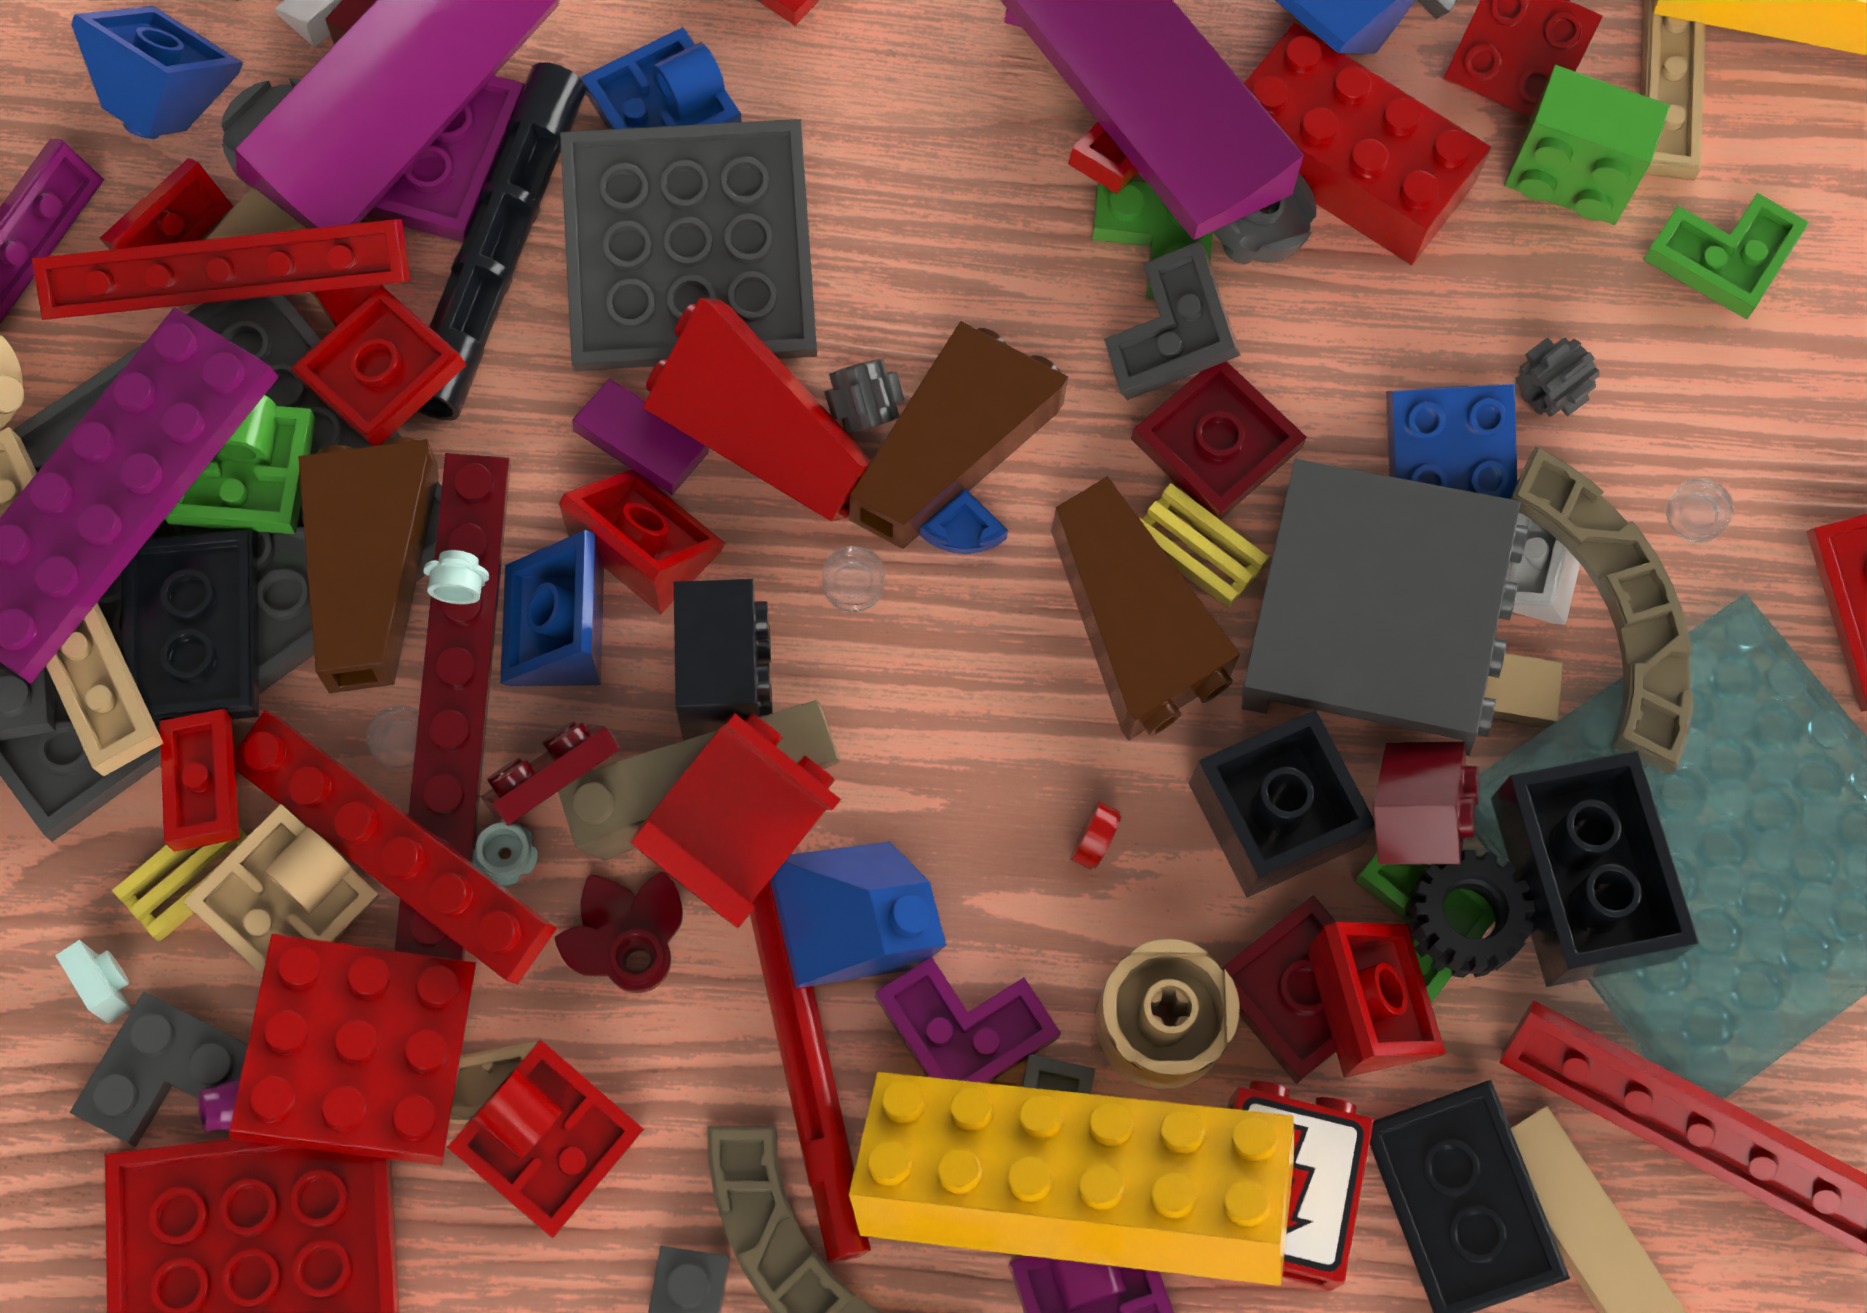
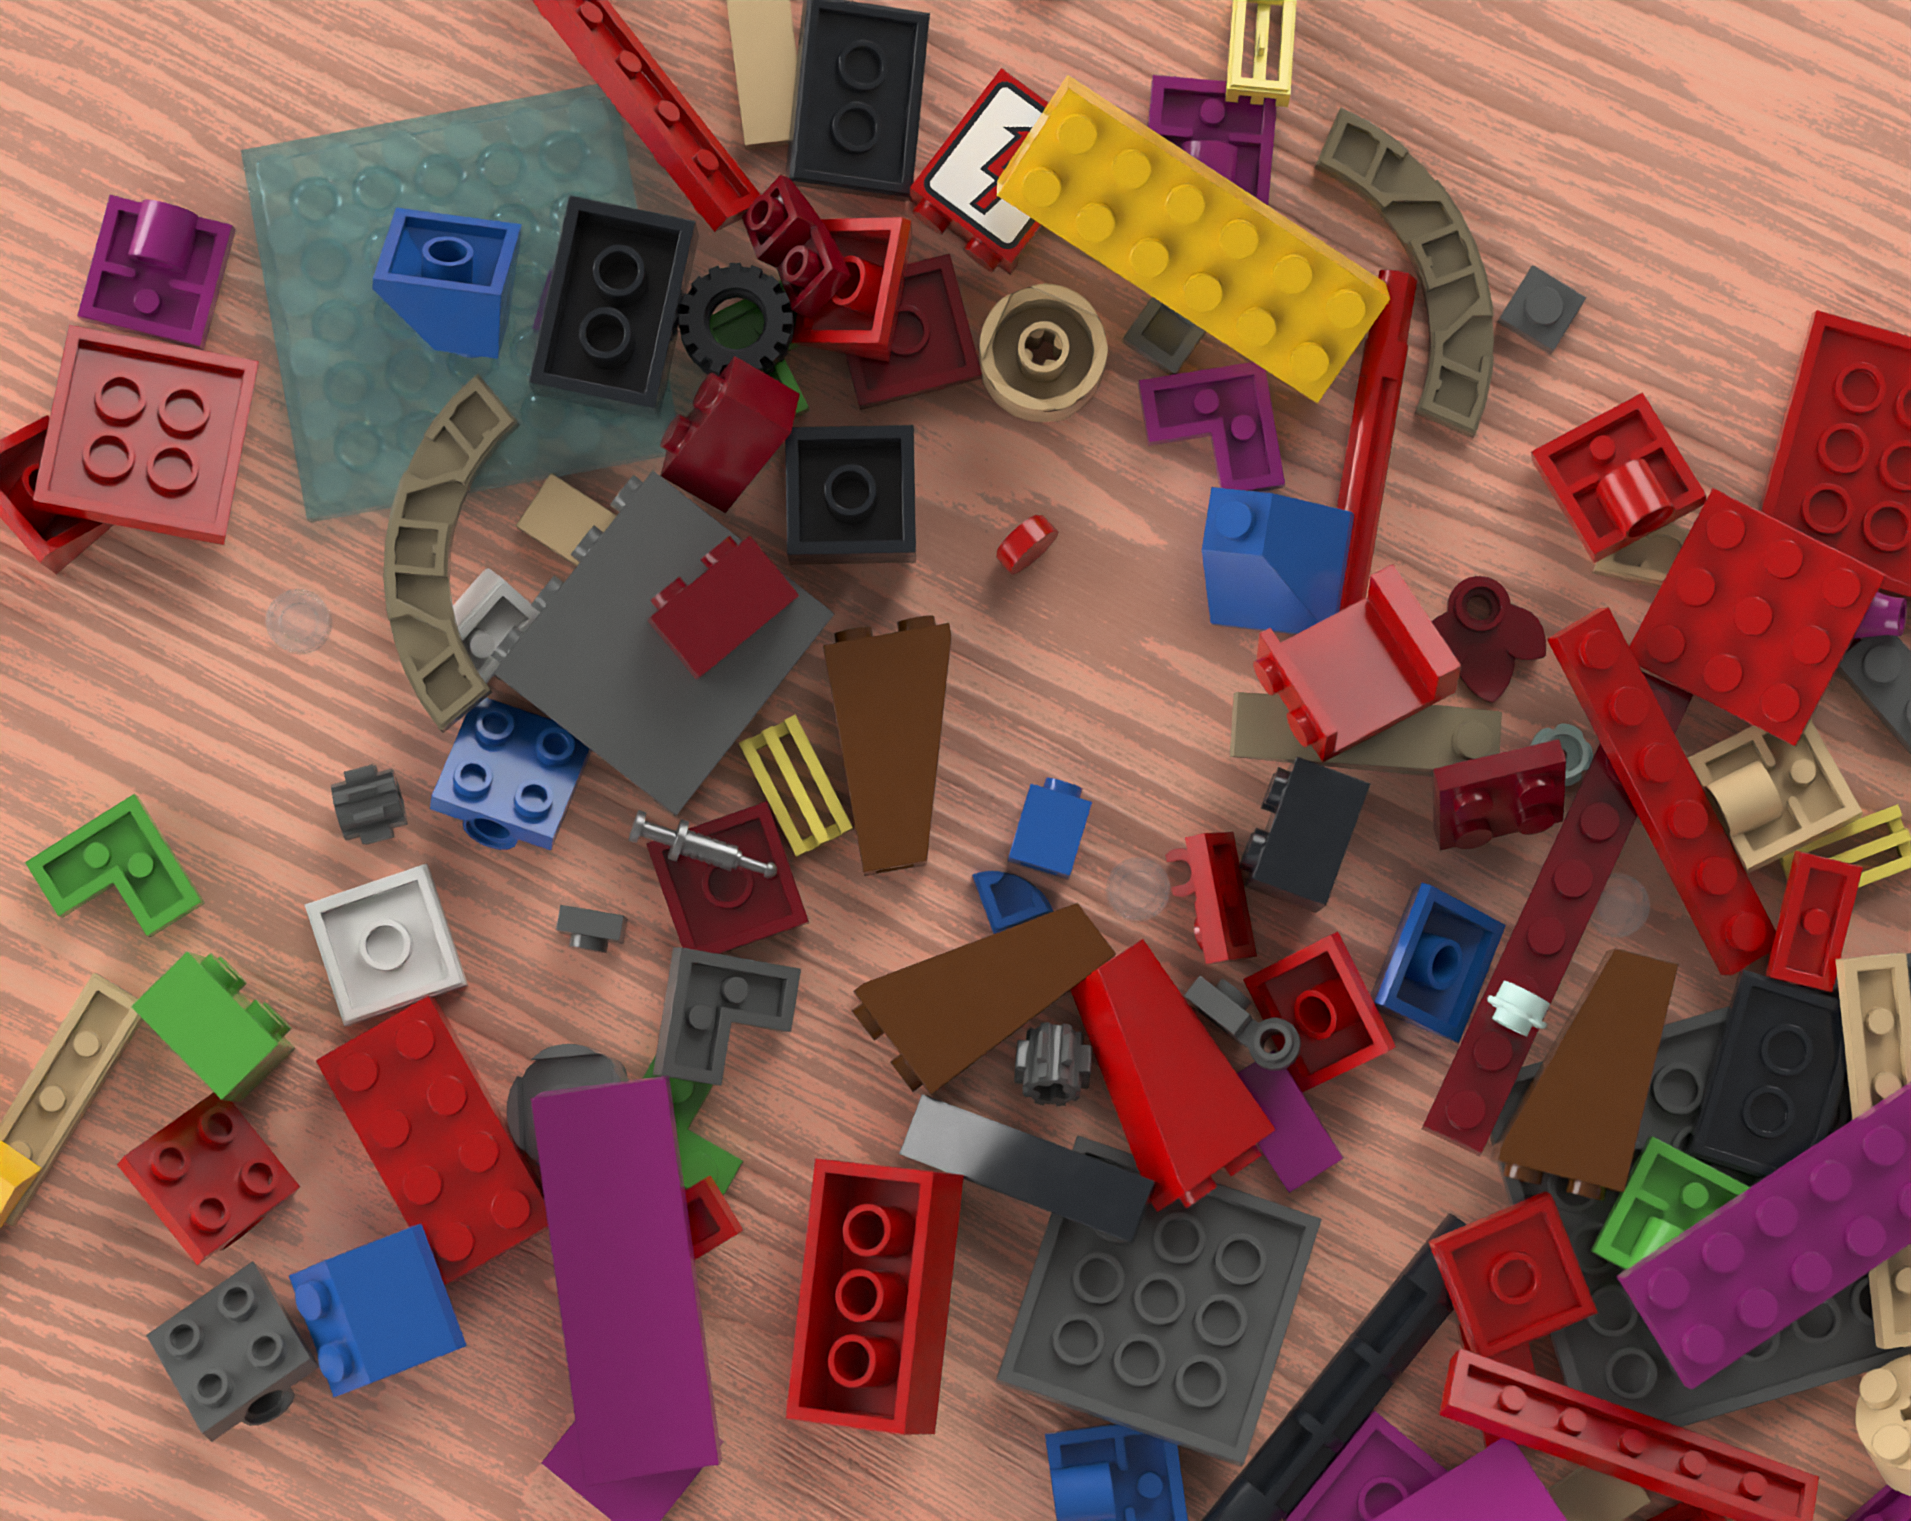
camera: 155 degrees left, 15 degrees up
(725, 494) = (1227, 1010): none -> dark grey plate
(792, 606) = (1221, 906): none -> red plate
(846, 295) = (1028, 1168): none -> black slope
(933, 149) = (874, 1297): none -> red brick
(956, 590) = (1050, 828): none -> blue brick
(1263, 443) = (697, 846): none -> flat silver piece
(1317, 356) = (591, 928): none -> dark grey plate
(1352, 631) = (720, 606): none -> dark red brick
(1457, 1020) = (797, 243): none -> dark red slope
(1476, 285) = (386, 945): none -> white tile
(1754, 838) = (450, 278): none -> blue slope

